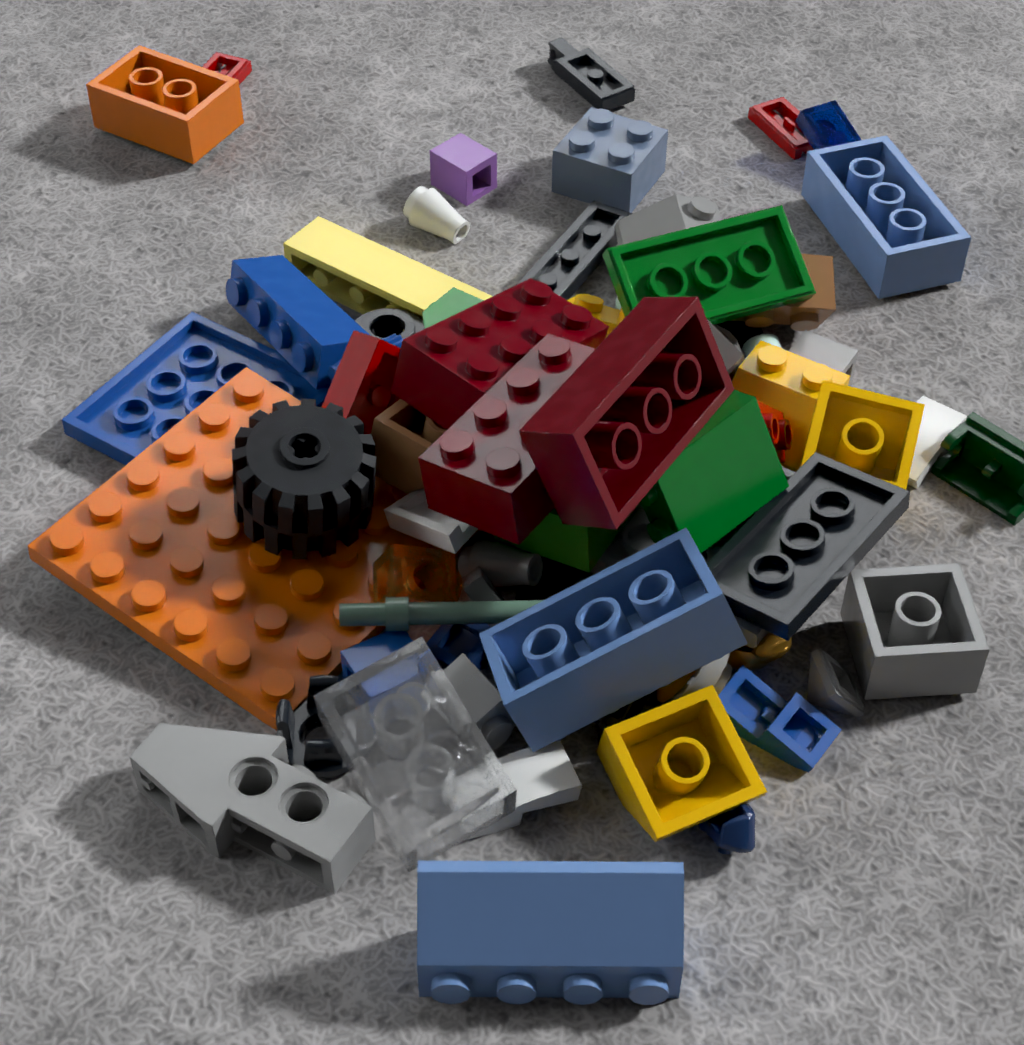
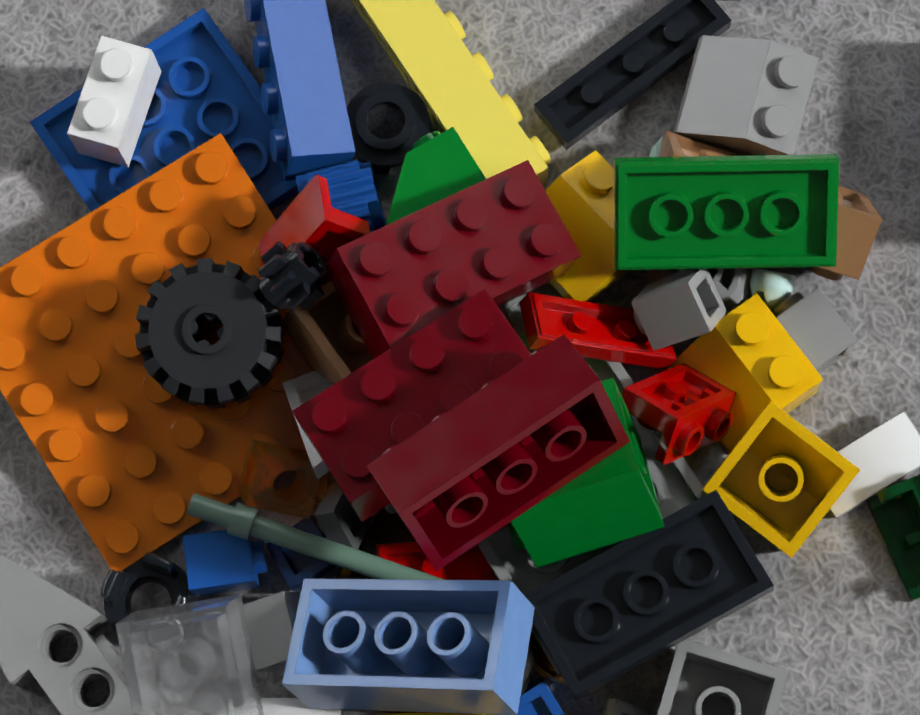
camera: 30 degrees right, 30 degrees up
(139, 370) = (114, 101): none -> white brick
(367, 389) = (292, 275): none -> black gear

